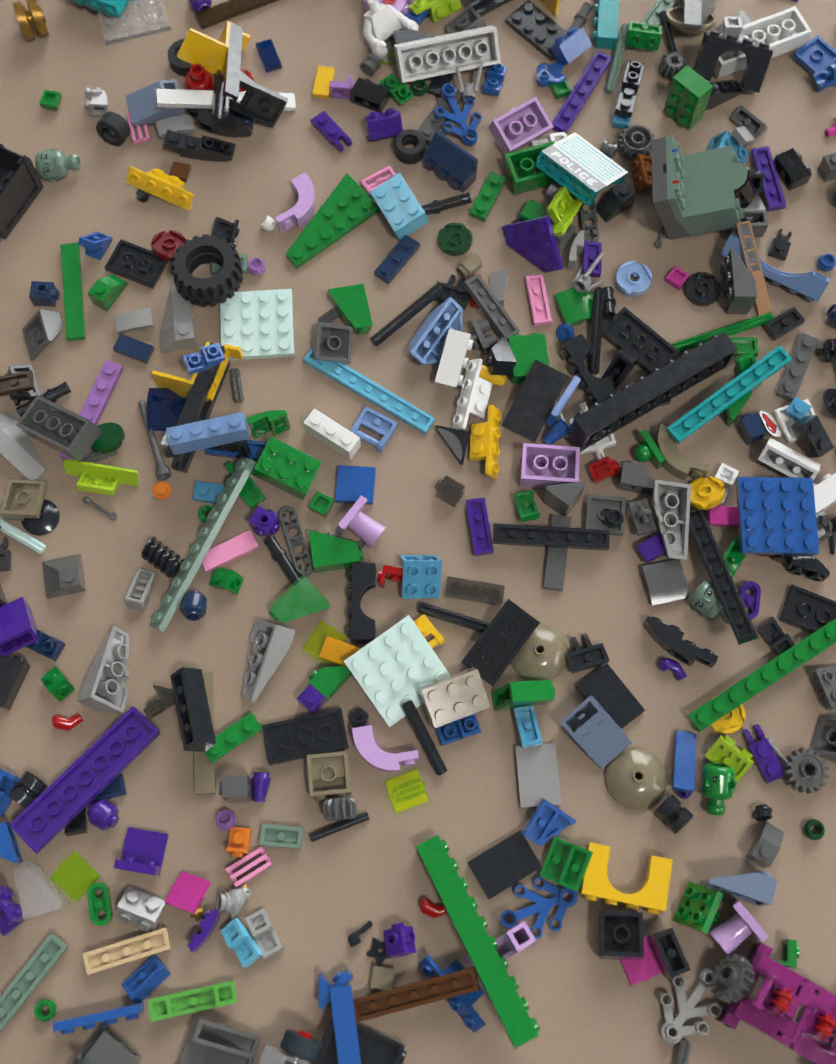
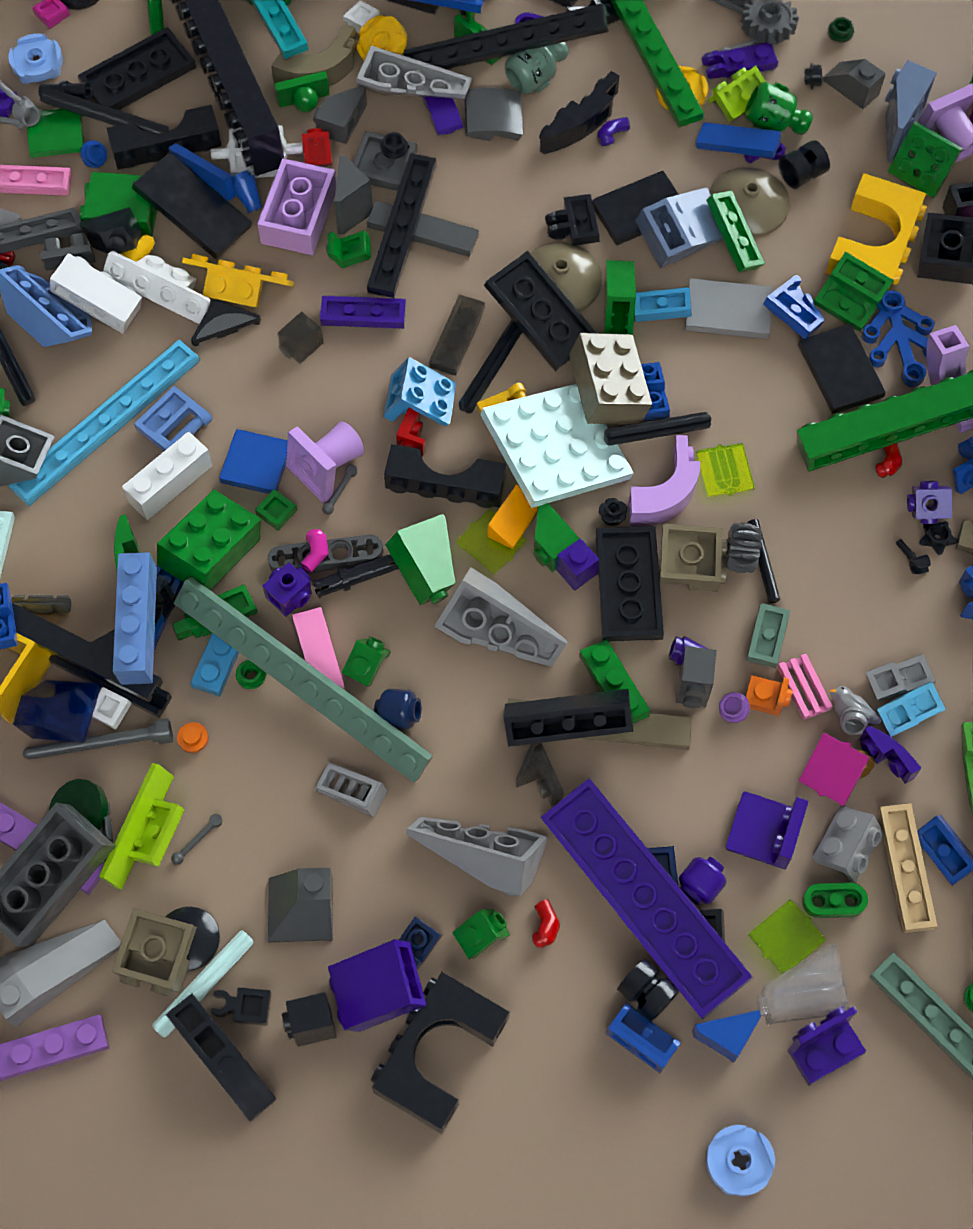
camera: 80 degrees left, 5 degrees down
(161, 559) = (308, 745): black piece -> none
(293, 534) = (318, 549): none -> dark pink arm
(333, 552) = (356, 504): green slope -> none
(599, 769) = (735, 231): none -> green plate
(621, 366) = (169, 94): black slope -> none
(642, 517) = (398, 117): dark grey hips -> none
(723, 516) = (421, 24): dark pink slope -> none

